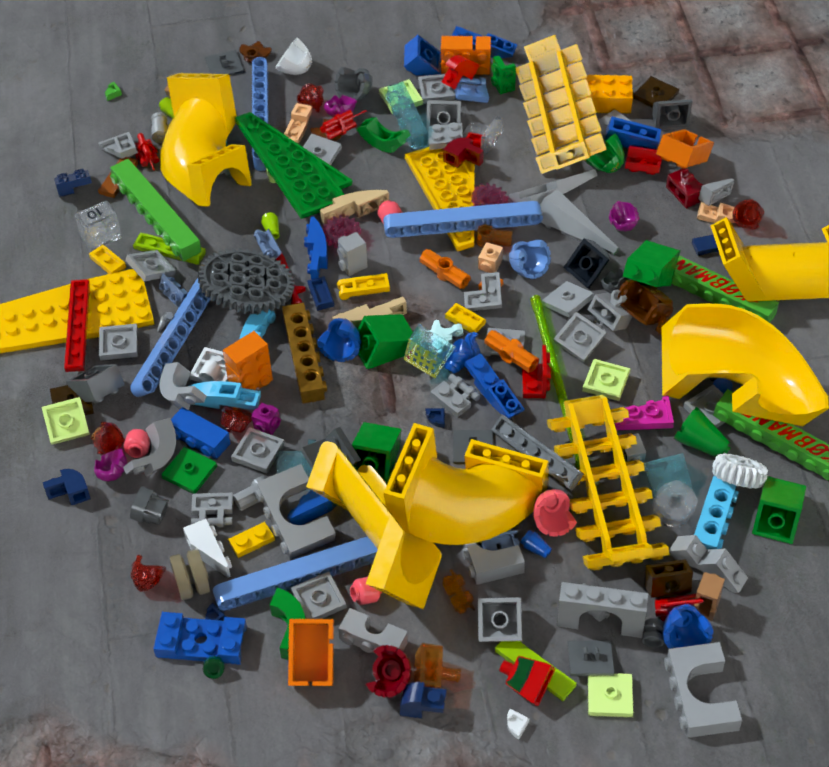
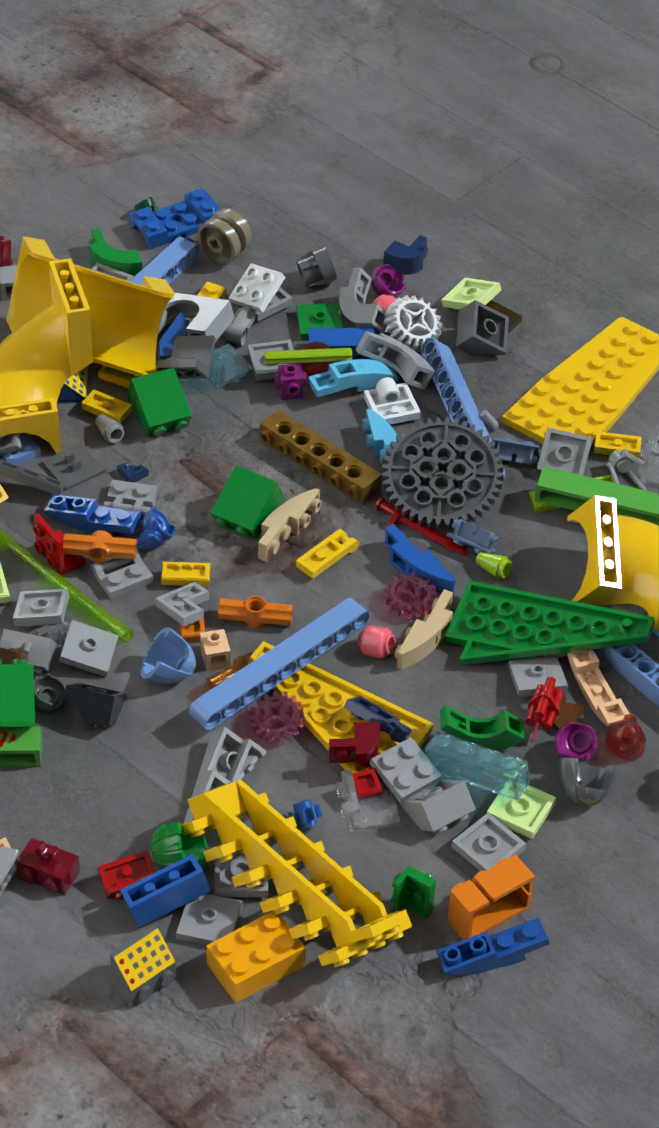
camera: 140 degrees right, 5 degrees down
(77, 325) = (563, 367): red tile -> none
(107, 438) = (420, 290): clear red helmet -> none
(118, 342) = (509, 381): light grey plate -> none
(122, 243) = (621, 462): none -> light grey plant
(137, 411) = (404, 313): none -> white gear
(146, 576) = (266, 230): clear red helmet -> none
(203, 536) = (227, 268): white slope -> none
(216, 502) = (257, 287): none -> white plate
(243, 413) = (307, 356): none -> lime axle
(248, 362) = (347, 393): orange piece -> none
(311, 652) = (70, 230): orange piece -> none
(320, 293) = (365, 528): dark blue tile -> none
(340, 340) = (290, 480): blue hair -> none
(352, 253) = (366, 563): light grey brick -> none
(422, 57) = (556, 878): blue slope -> none
(427, 350) = (190, 508): clear light blue slope -> none
(437, 163) = (368, 711): none -> dark blue hinge
(447, 333) = (194, 549): light aqua piece -> none
(458, 67) = (468, 853): red brick -> none
(471, 92) = (440, 857): medium blue plate -> none
(516, 144) = (305, 814): none -> blue gear
(566, 217) = (175, 748): light grey wedge -> none
(624, 216) = (95, 777): magenta hair -> none
(654, 91) = (193, 1010): dark brown plate -> none
(680, 148) = (77, 895): orange piece -> none

